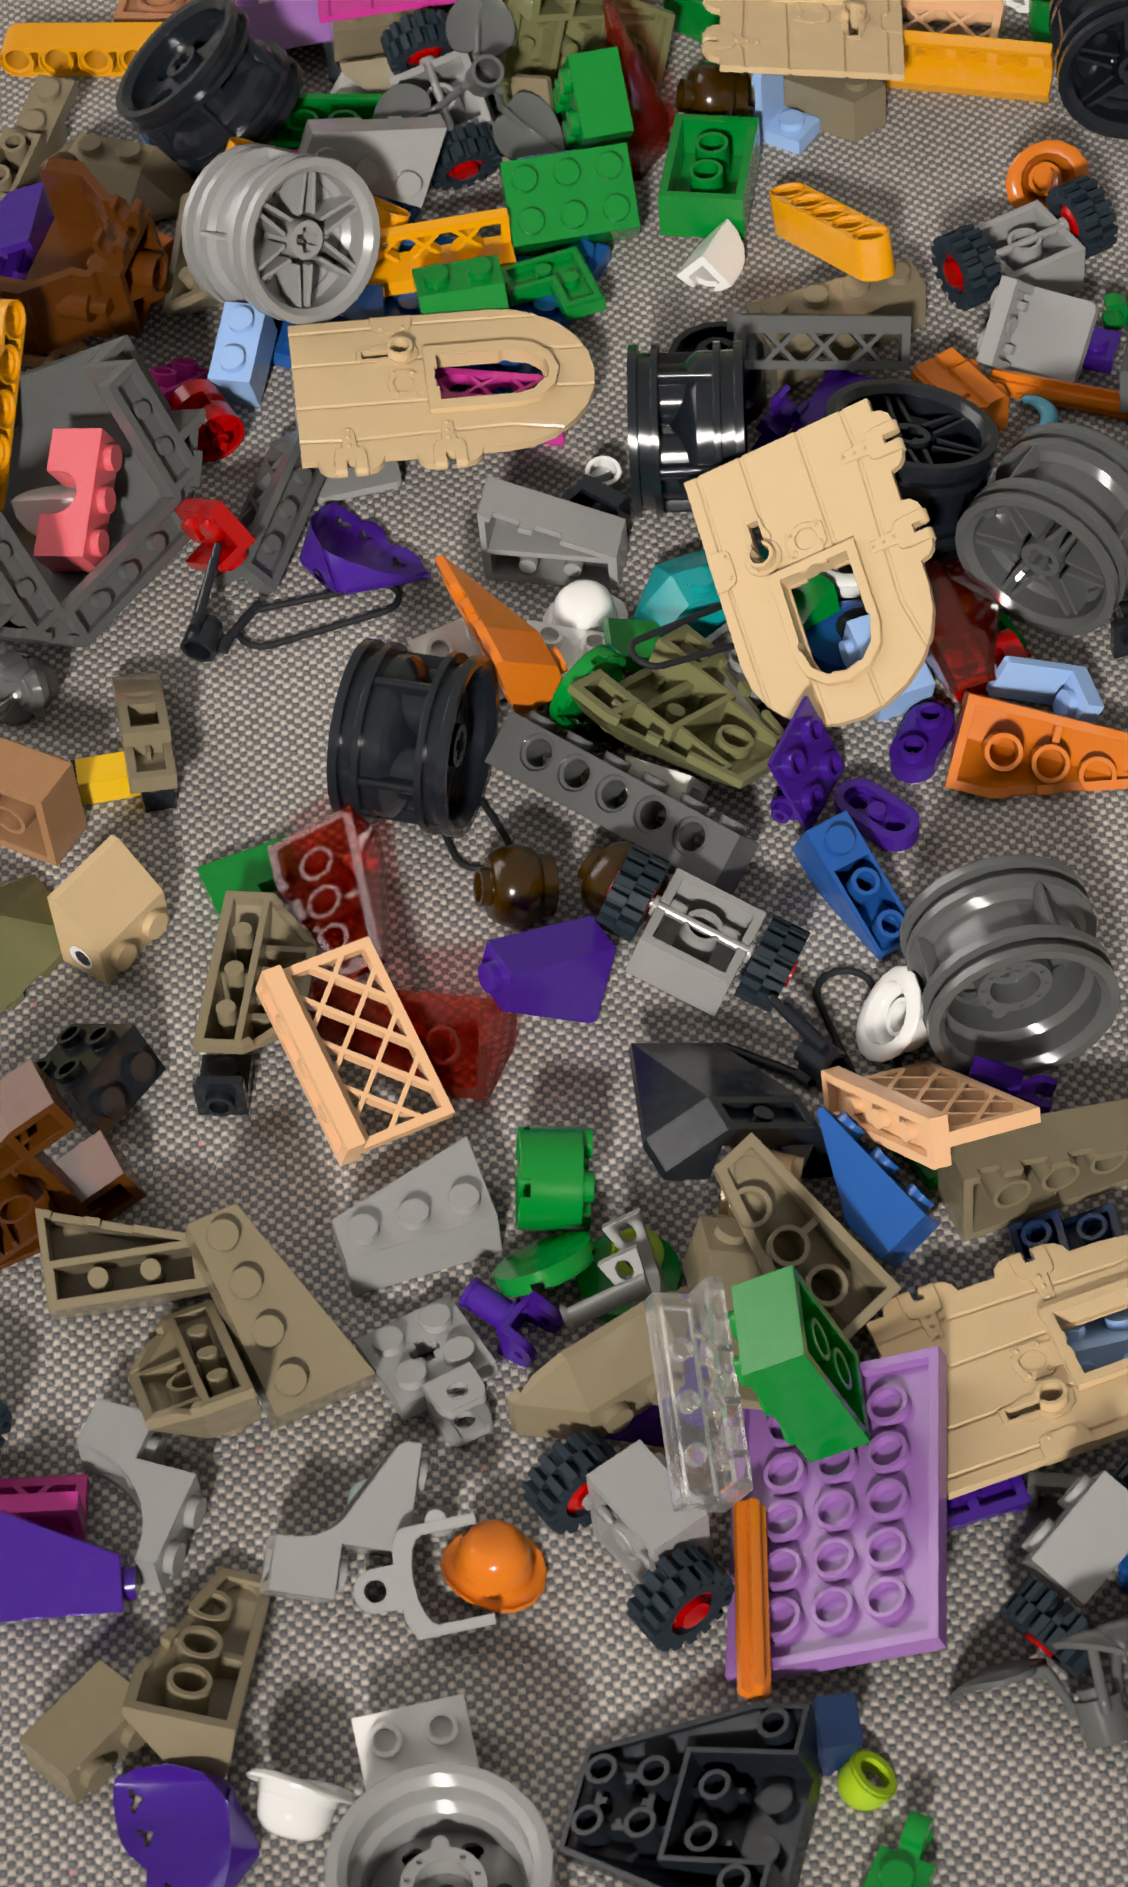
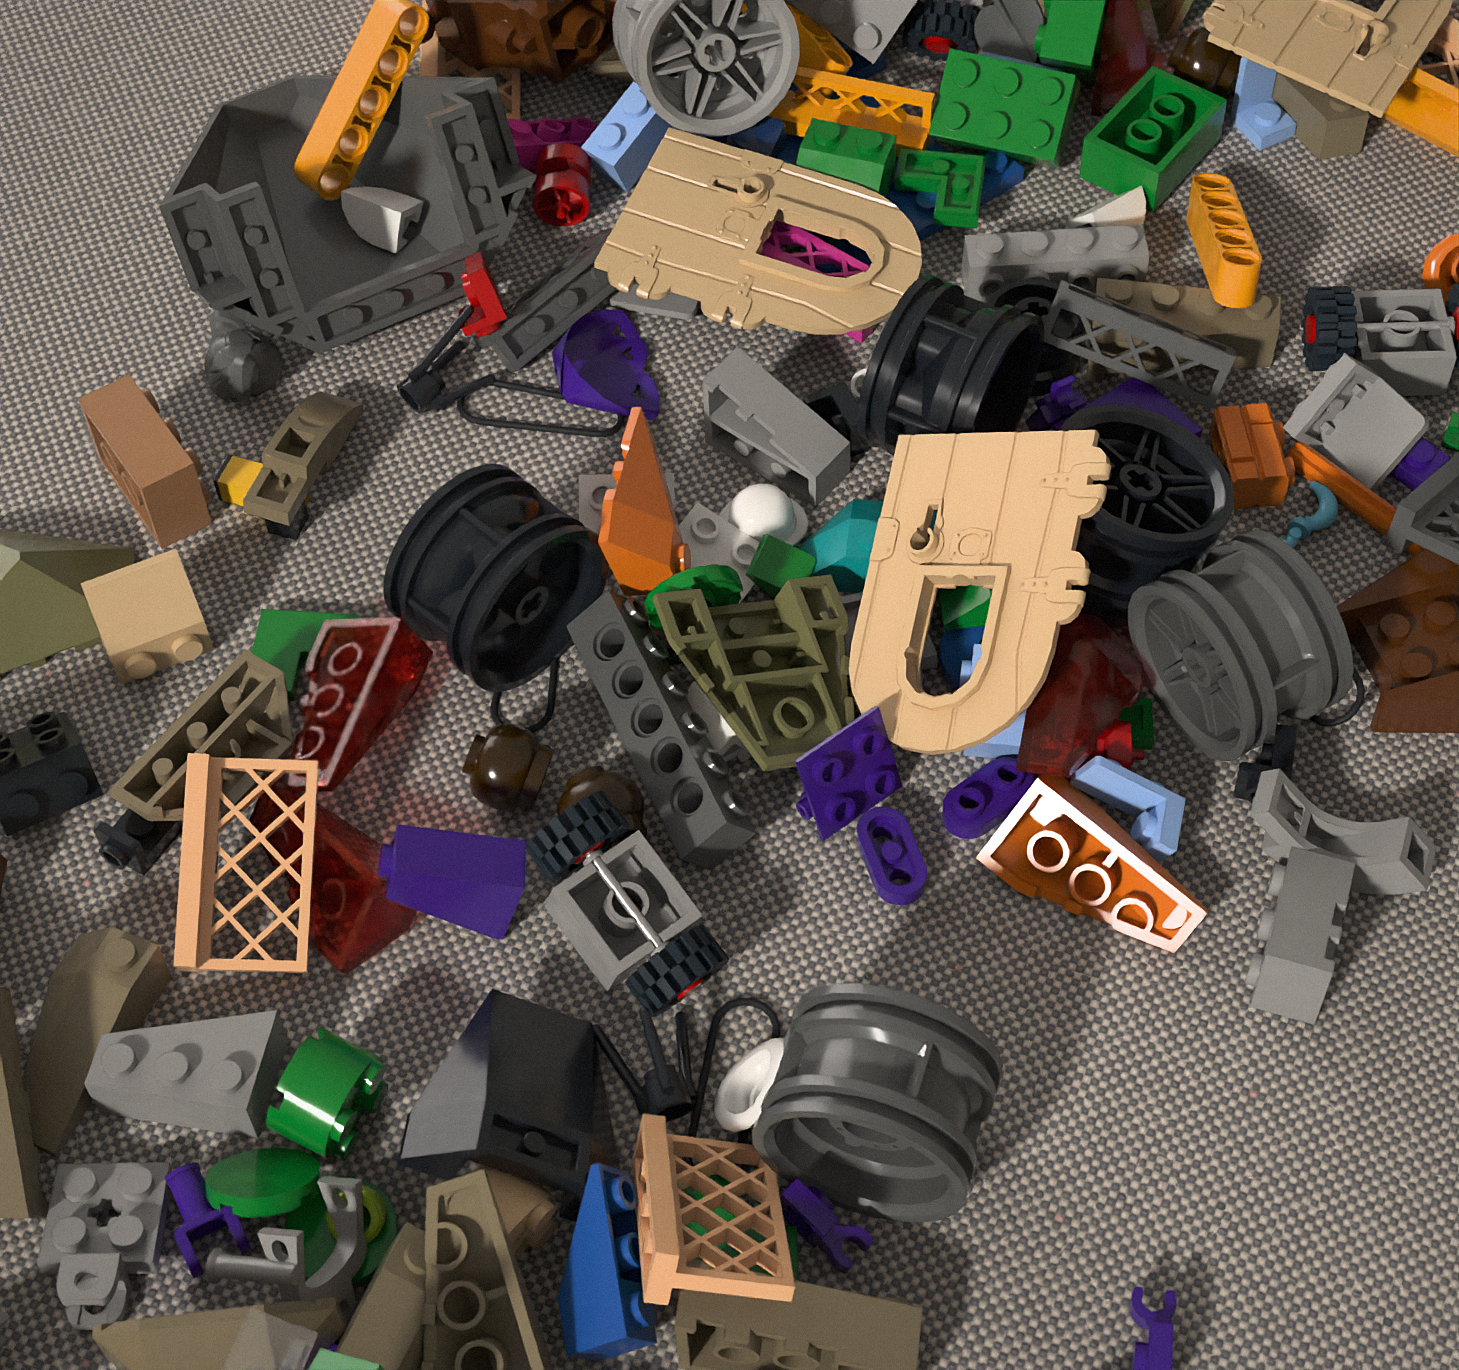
camera: 25 degrees right, 5 degrees up
(79, 534) = (381, 242): coral arch -> none
(292, 1203) = (97, 989): none -> dark tan wedge
(683, 659) = (800, 572): black piece -> none
(692, 302) = (1054, 255): none -> light grey brick
(852, 882) = (819, 916): blue slope -> none

